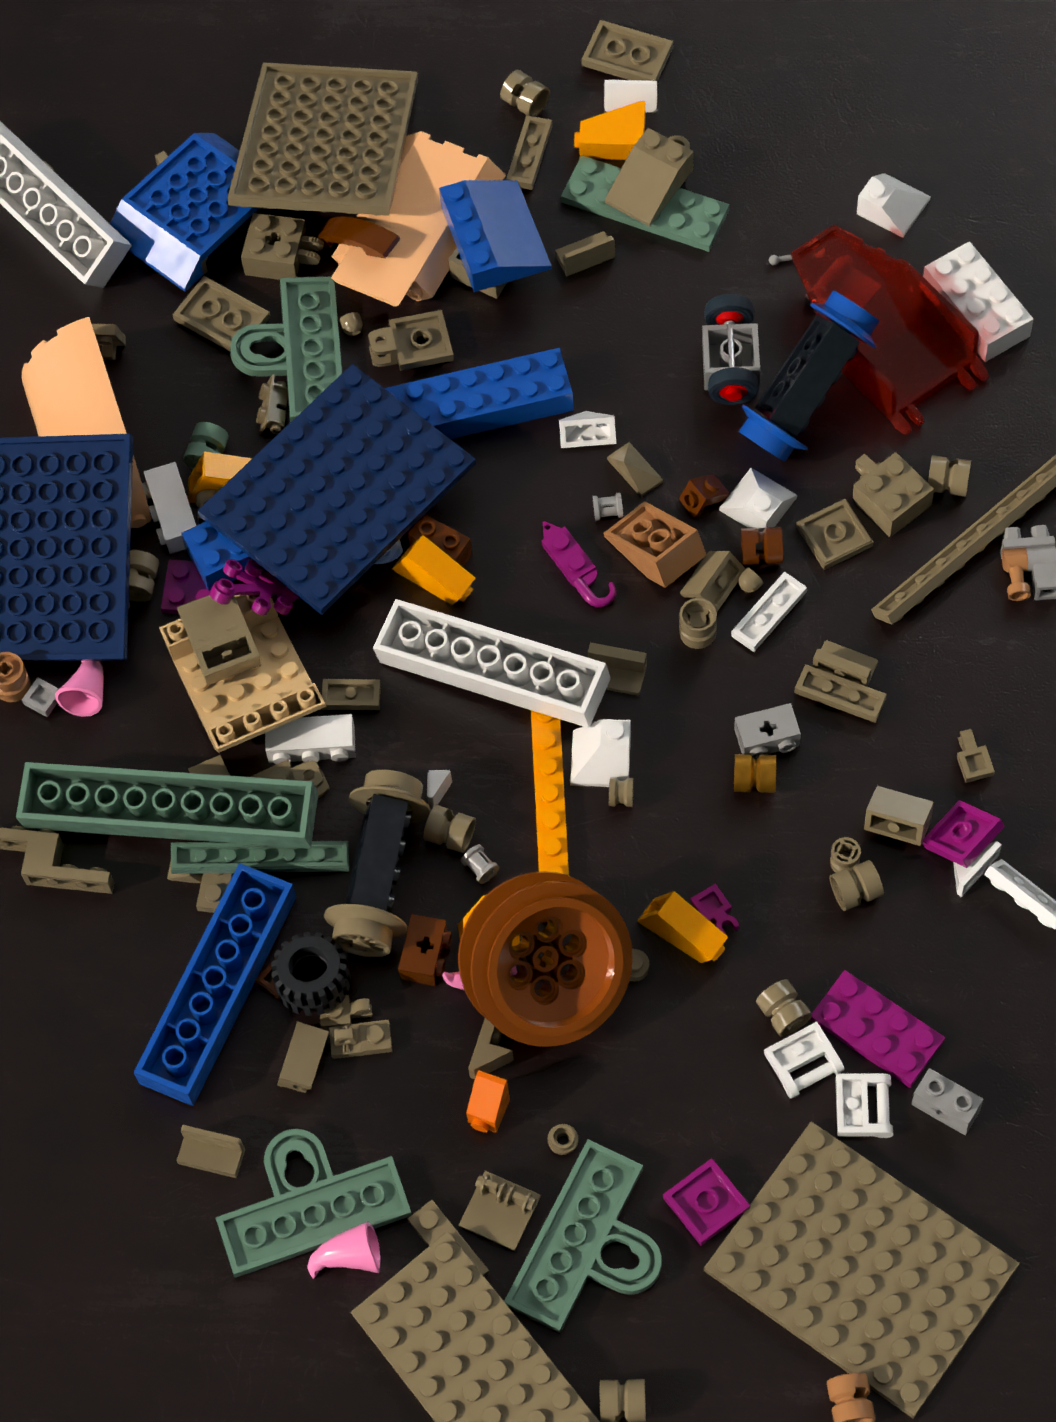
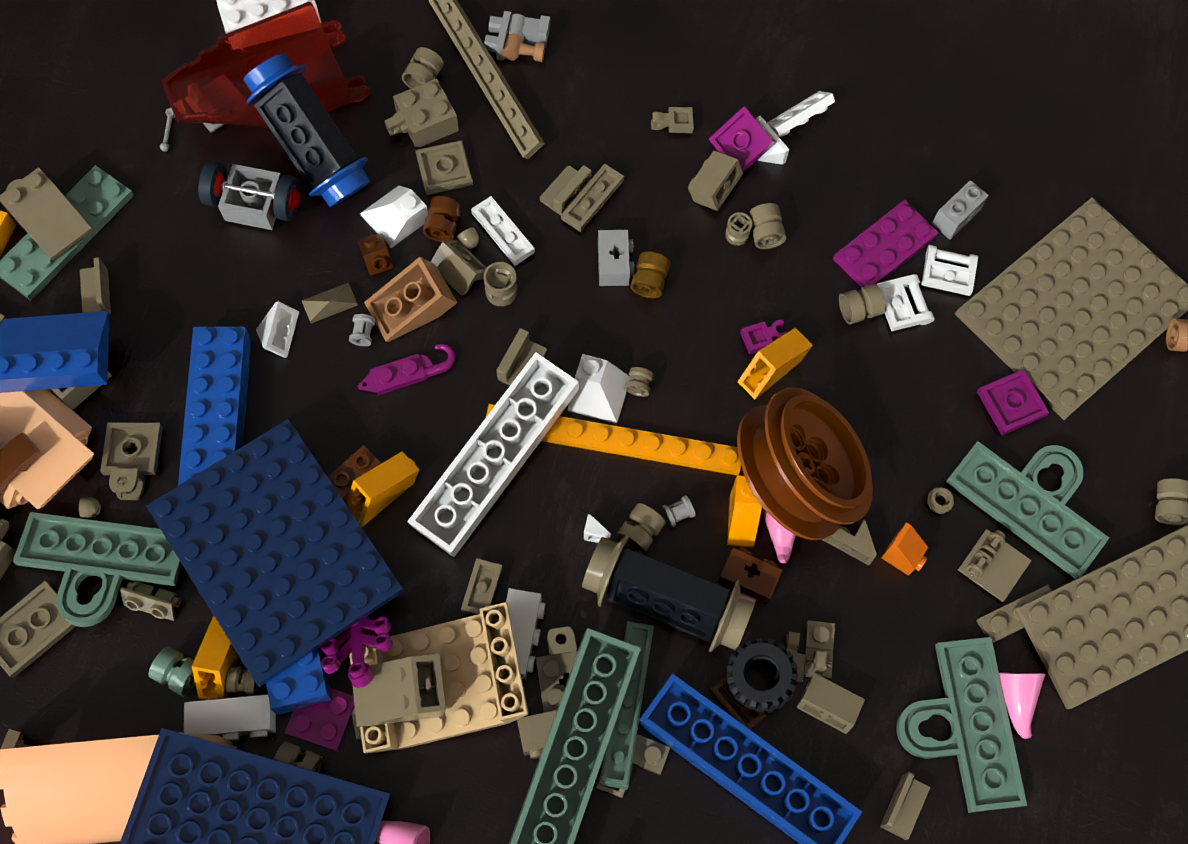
camera: 85 degrees left, 5 degrees up
(891, 203) = (147, 48): white slope -> none

